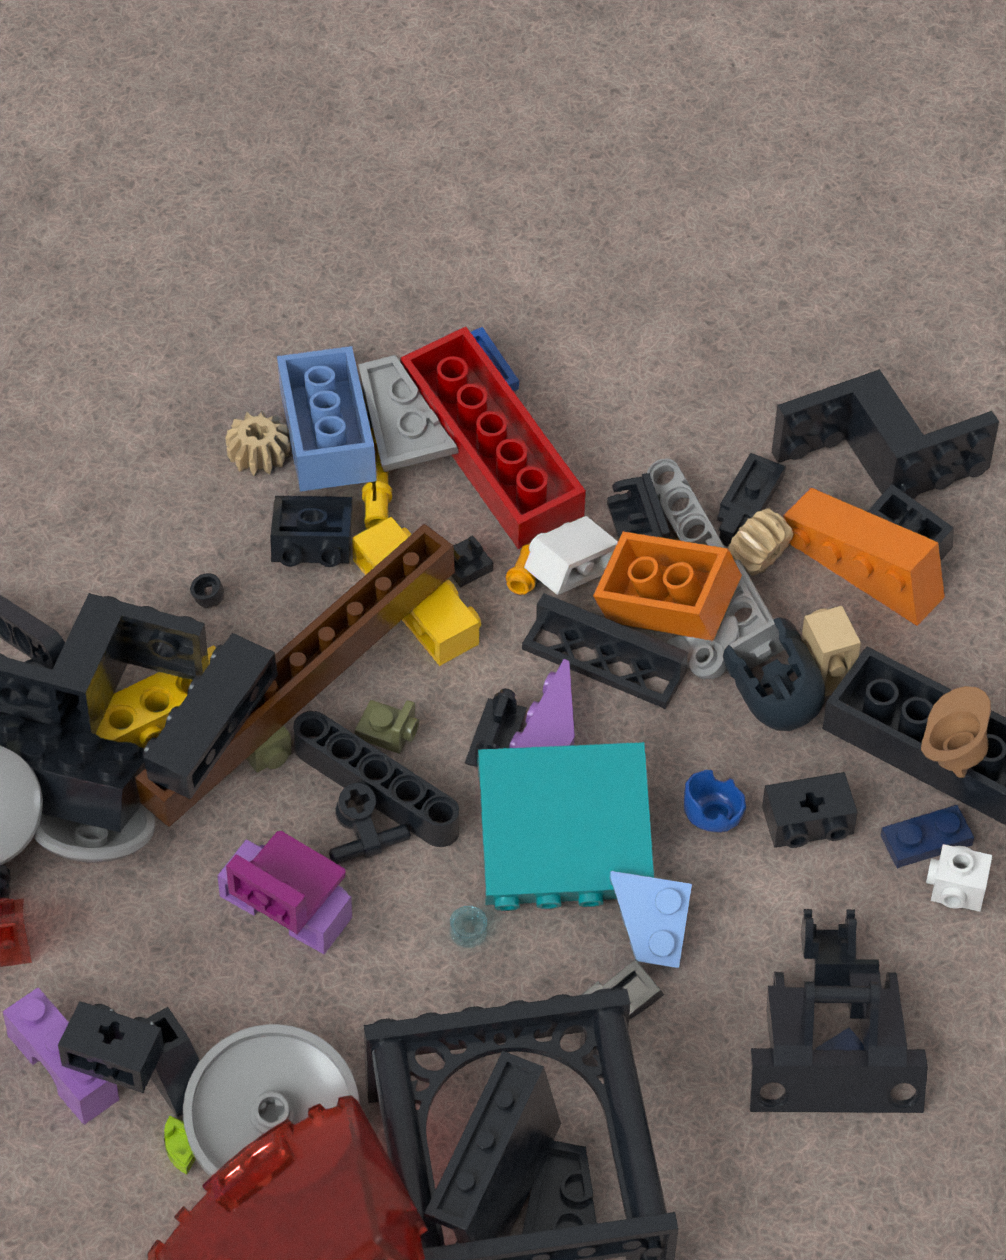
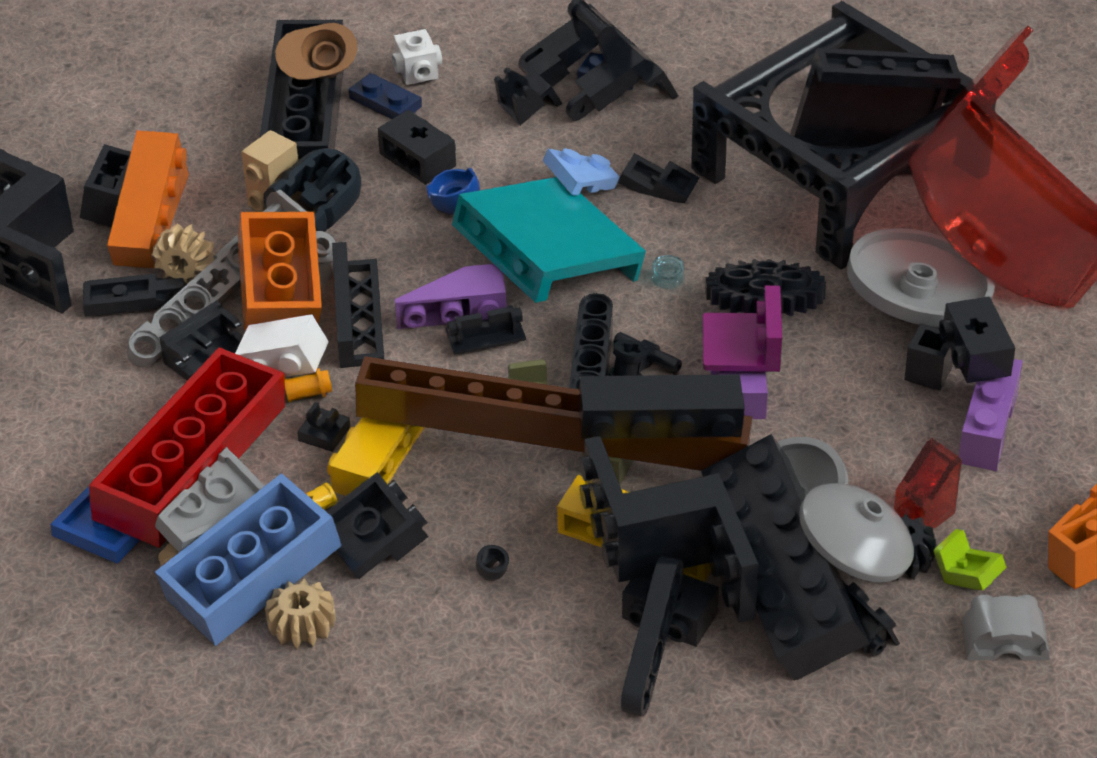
camera: 120 degrees left, 10 degrees down
(326, 965) = (744, 284): none -> black gear

